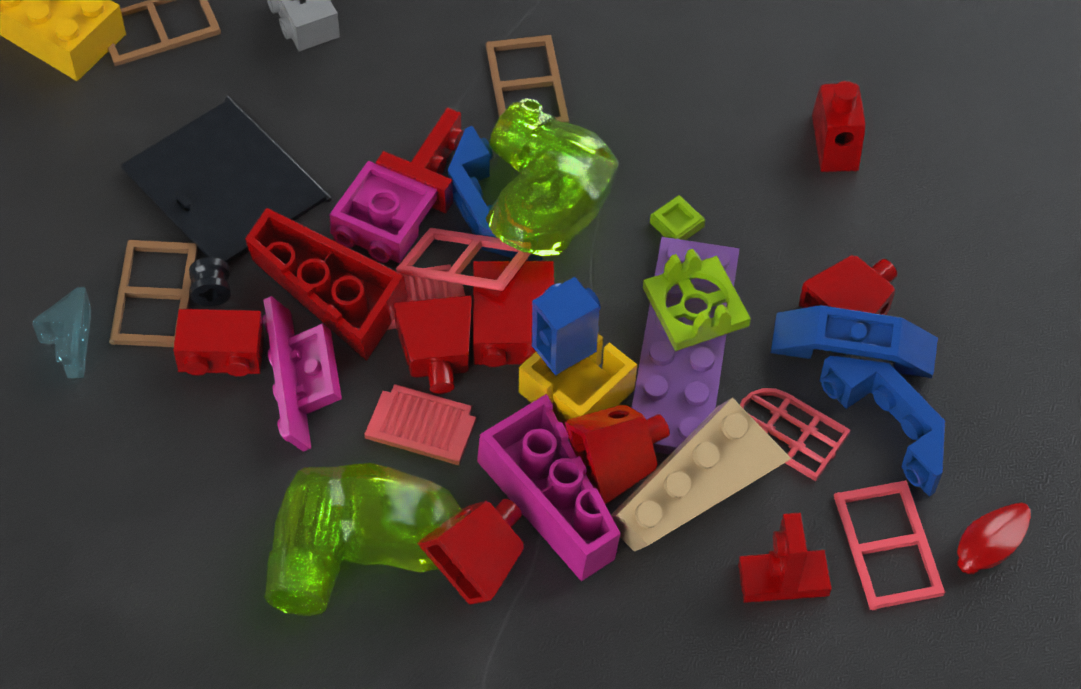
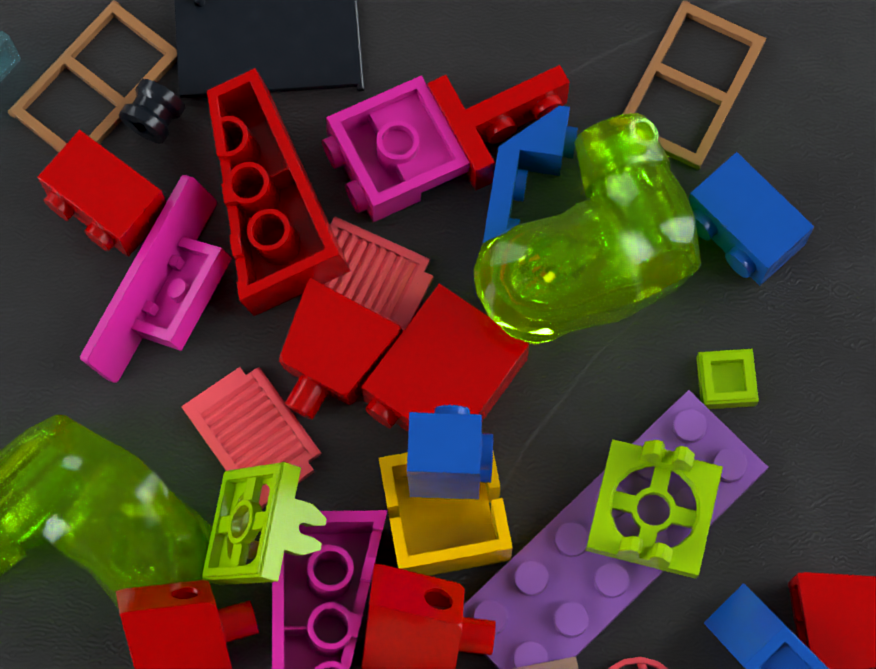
camera: 40 degrees right, 15 degrees up
(448, 444) = (241, 519): none -> lime piece
(454, 274) = (404, 284): coral window -> none
(625, 124) = (748, 219): none -> blue brick

